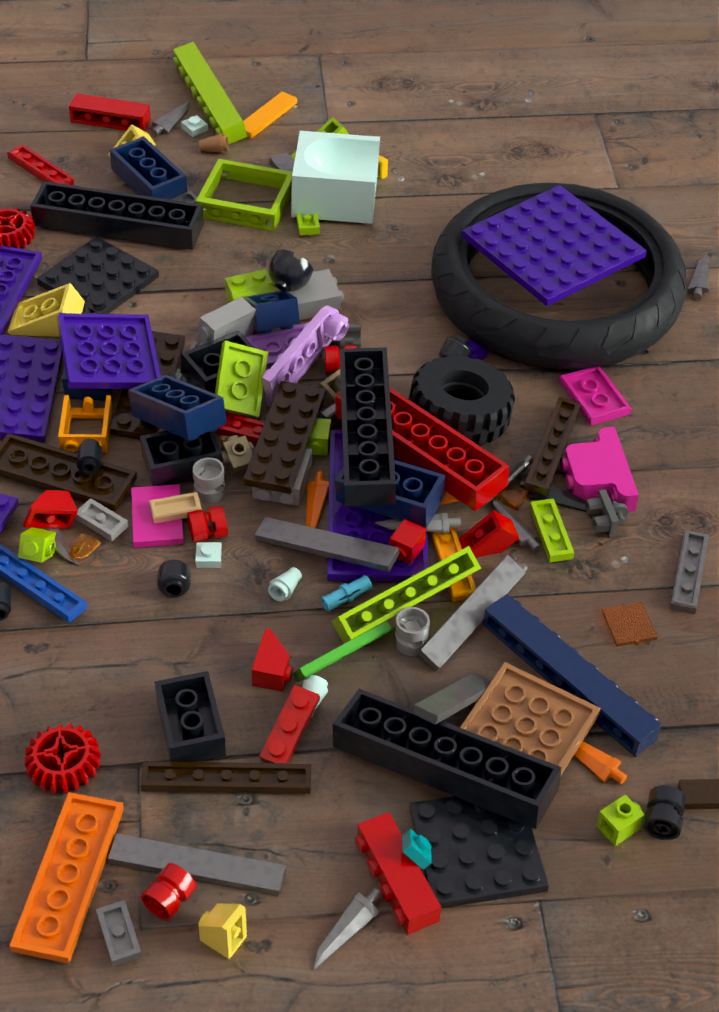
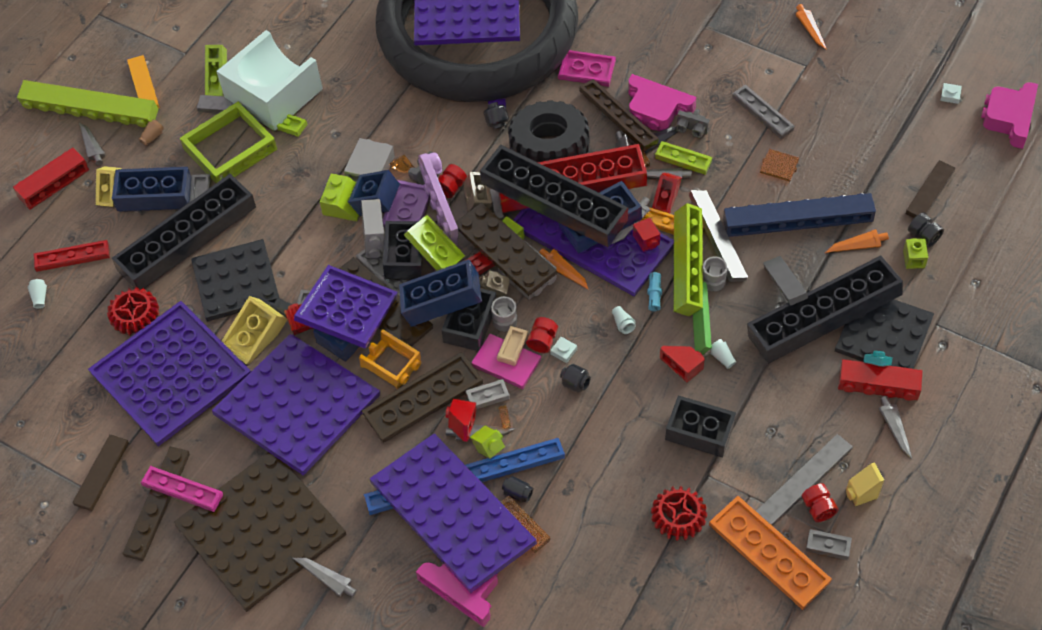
camera: 50 degrees left, 10 degrees up
(89, 456) = (432, 370): black brick -> none
(194, 126) = (114, 134): light aqua plate -> none
(226, 777) = (752, 432): dark brown plate -> none
(289, 272) = (354, 160): black cylinder -> none
(290, 726) = (741, 377): red plate -> none
(327, 544) = (611, 279): flat silver tile -> none
(532, 716) = (820, 252): medium nougat plate -> none

